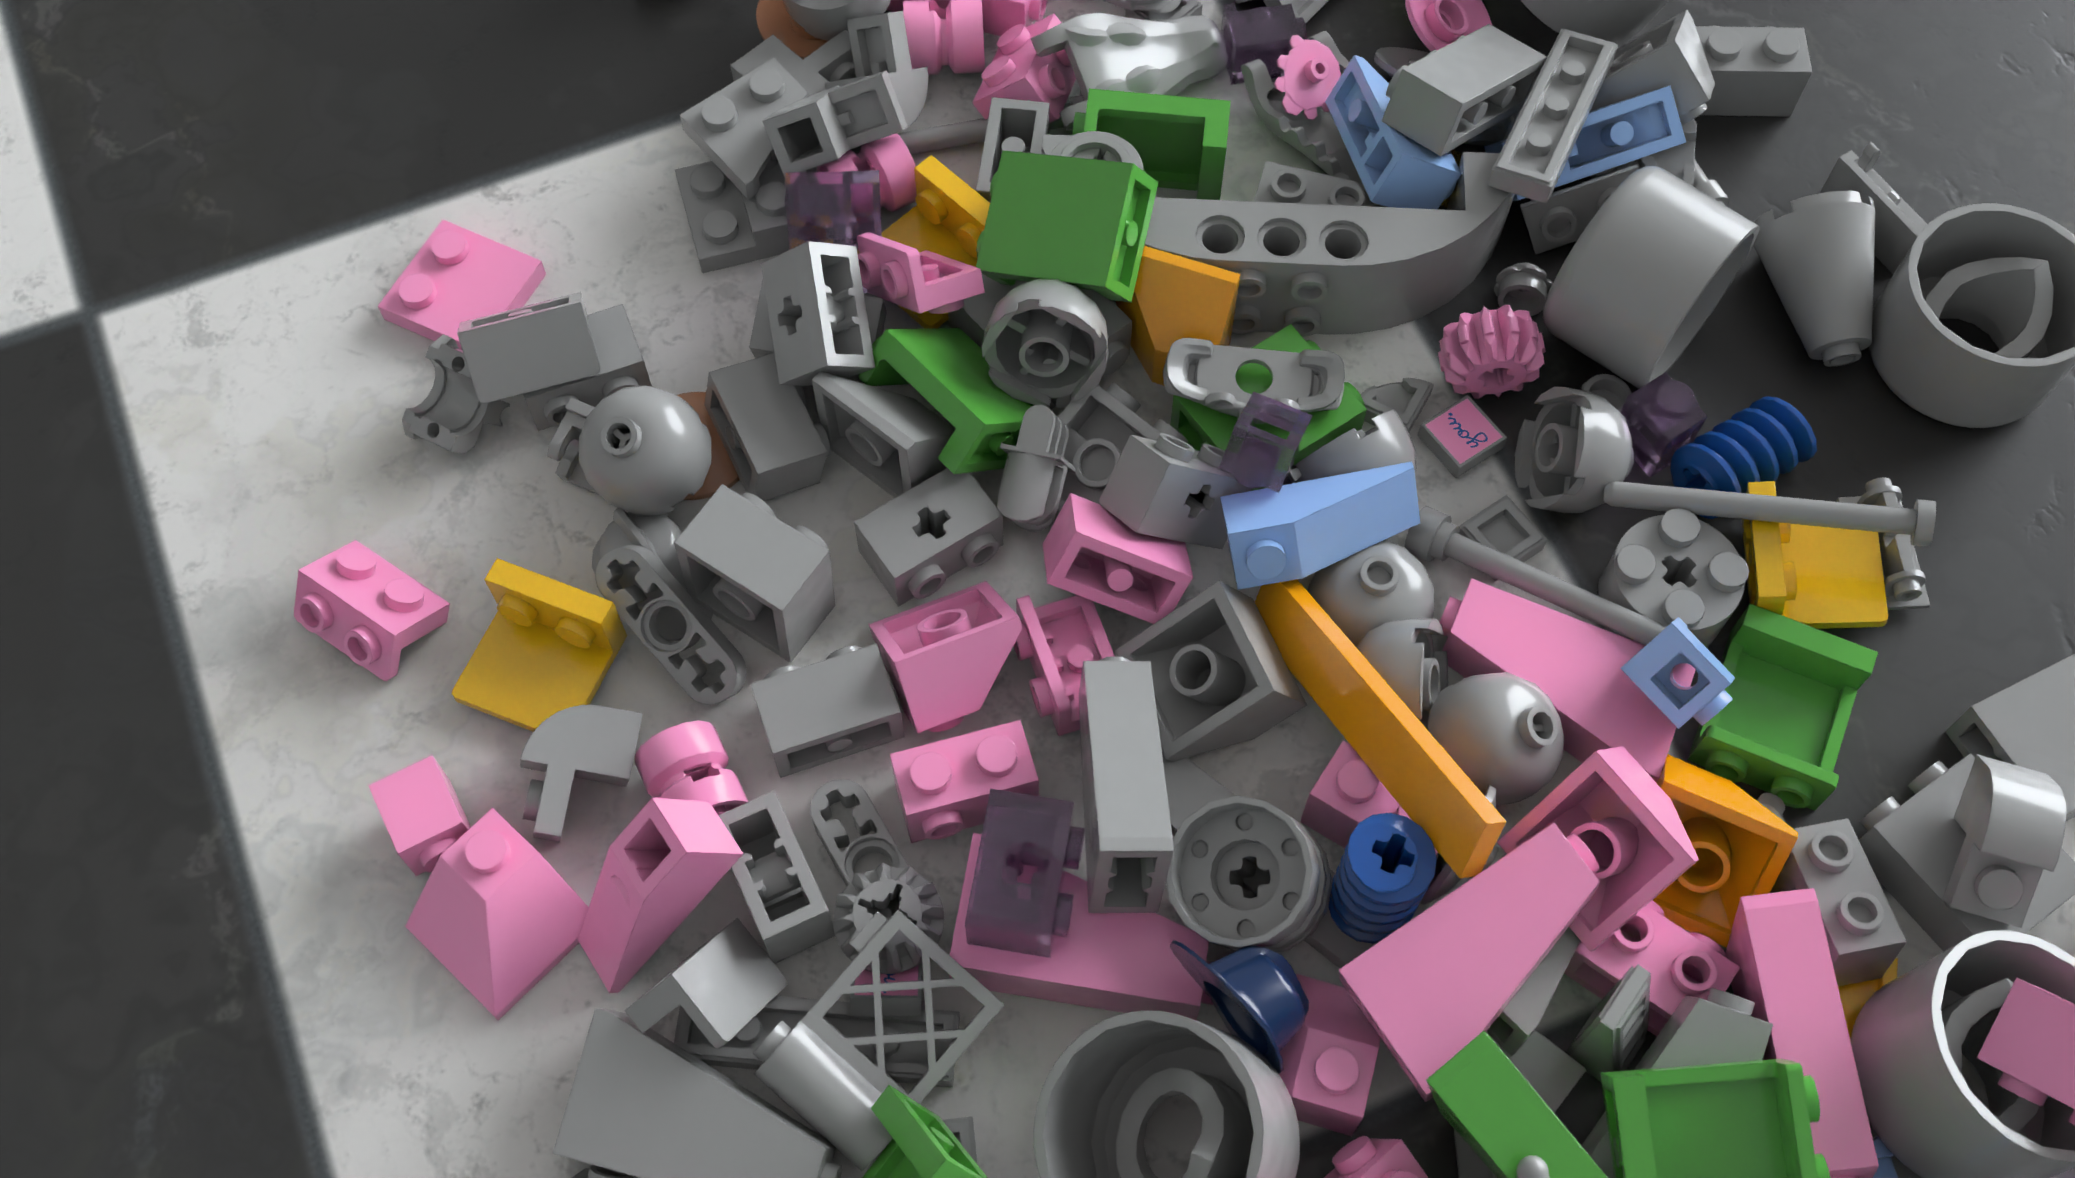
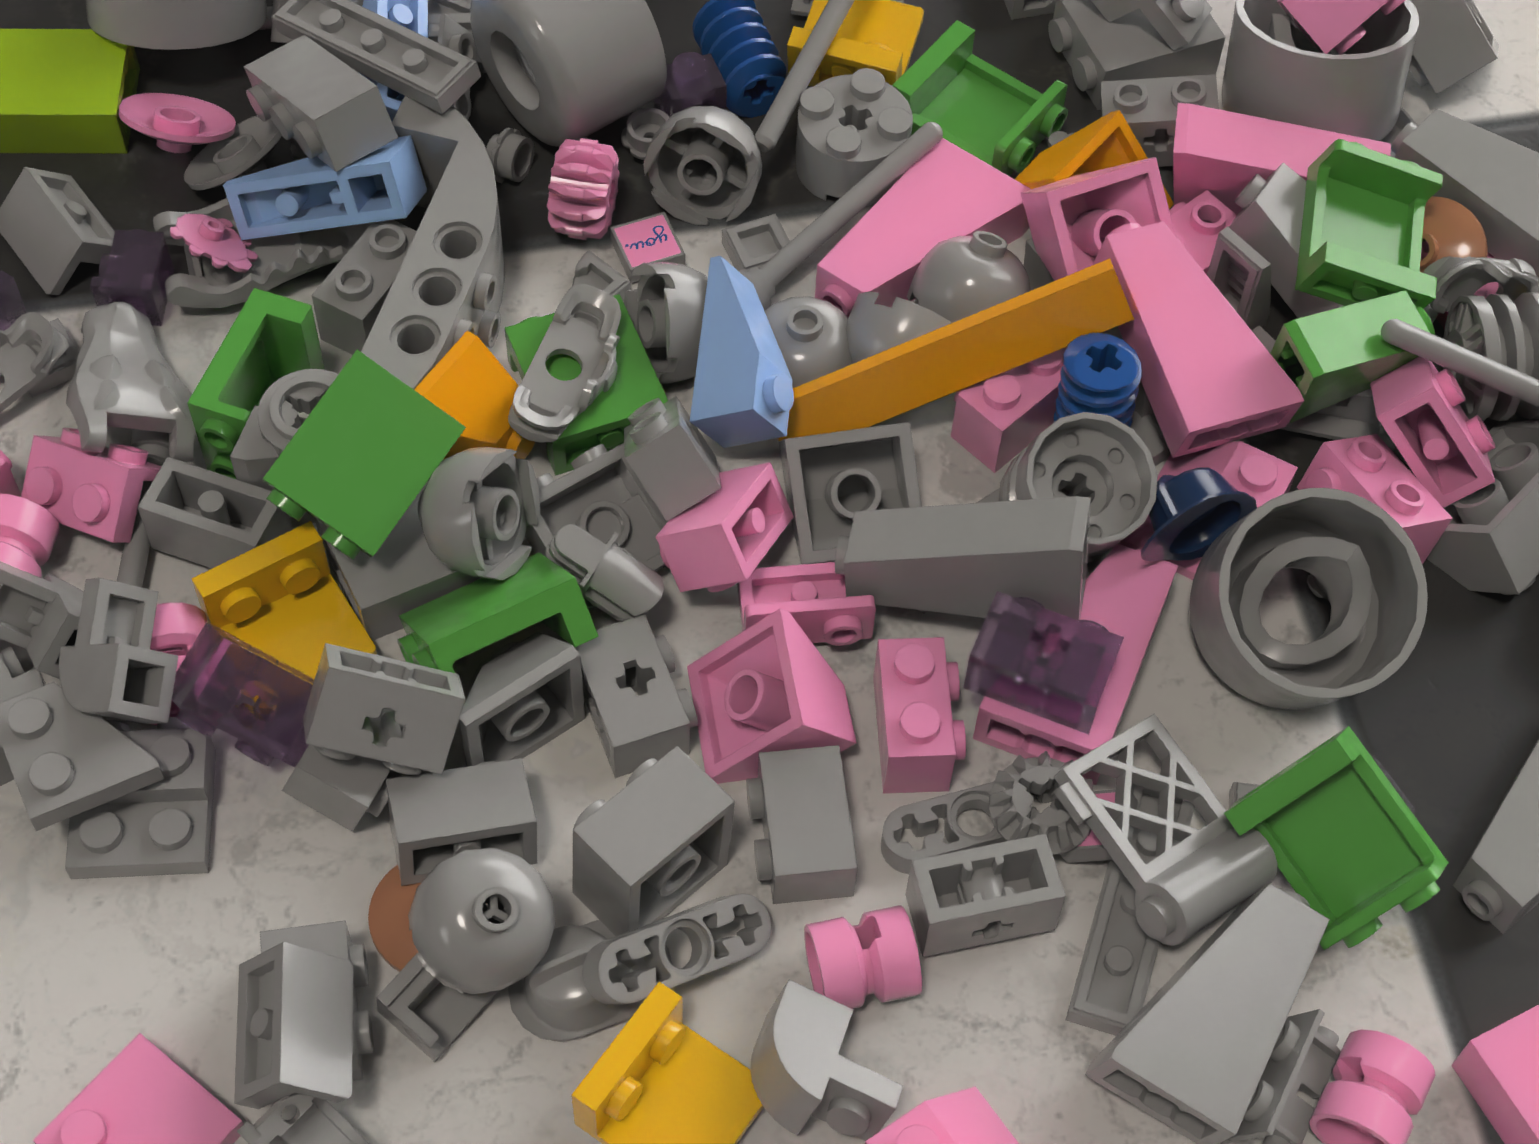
camera: 80 degrees left, 5 degrees down
(652, 883) = (993, 994): bright pink slope -> none
(716, 986) = (1089, 967): light grey panel -> none
(915, 278) = (355, 612): bright pink bracket -> none
(1259, 456) = (667, 370): clear purple brick -> none
(1653, 673) = (961, 137): light blue brick -> none

